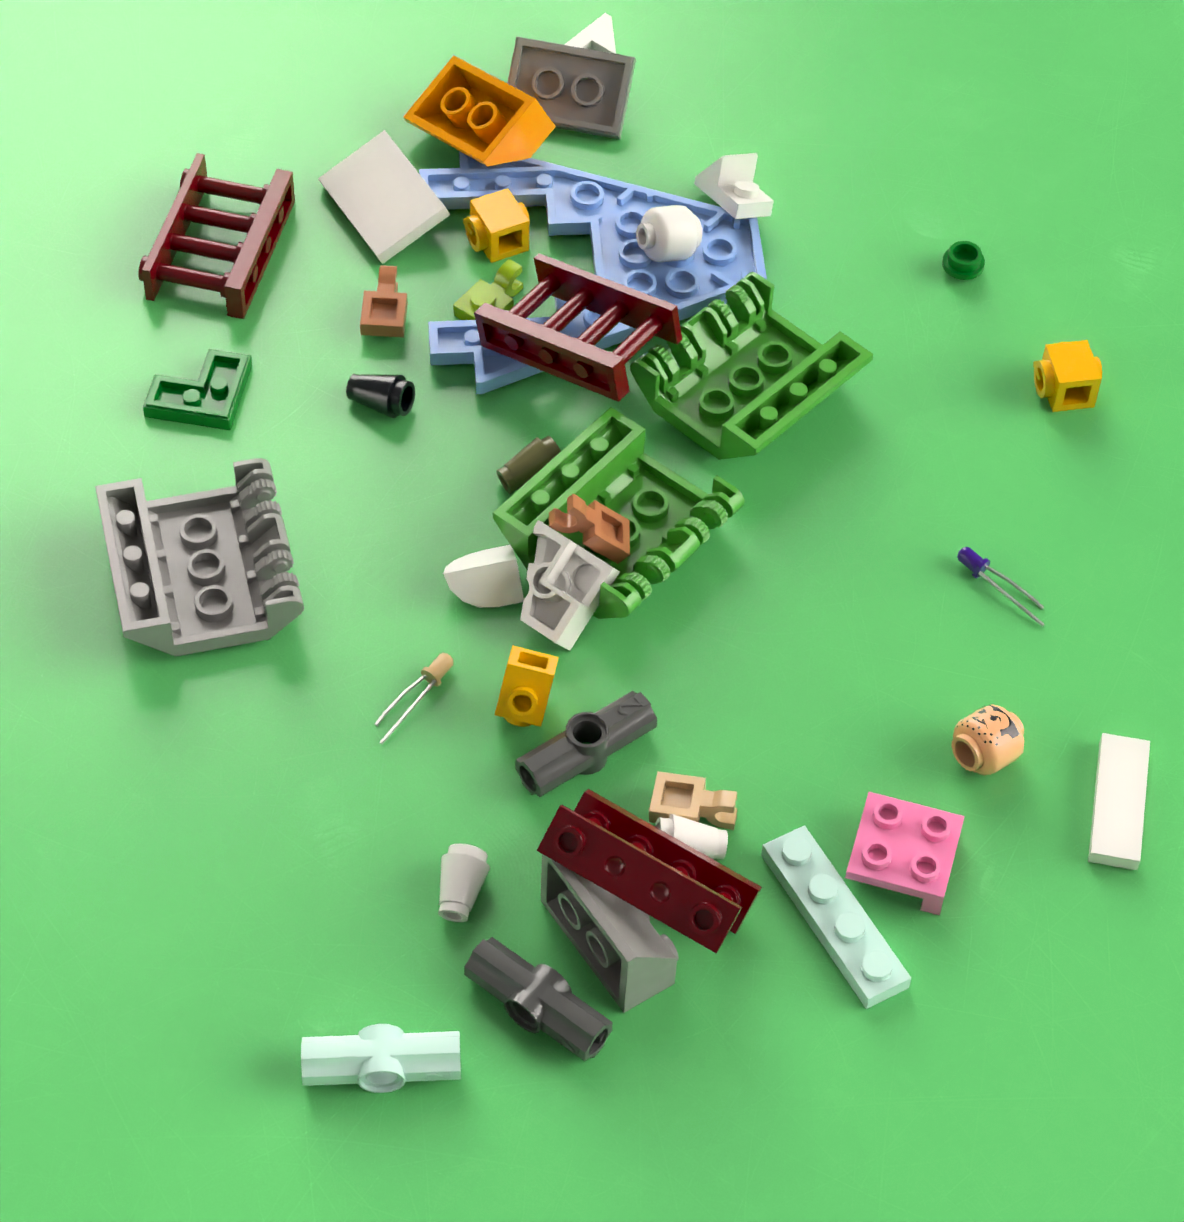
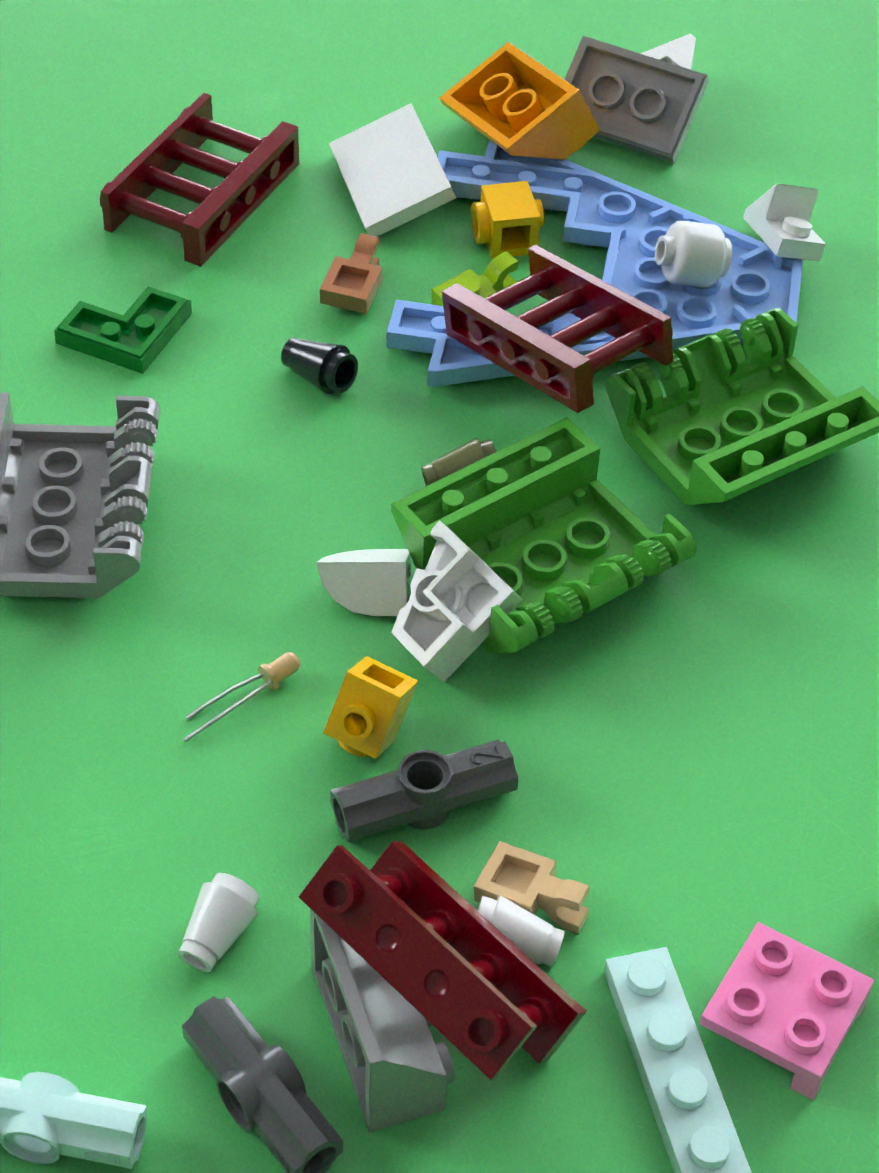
camera: 15 degrees right, 5 degrees down
(601, 527) = (513, 543): nougat plate -> none

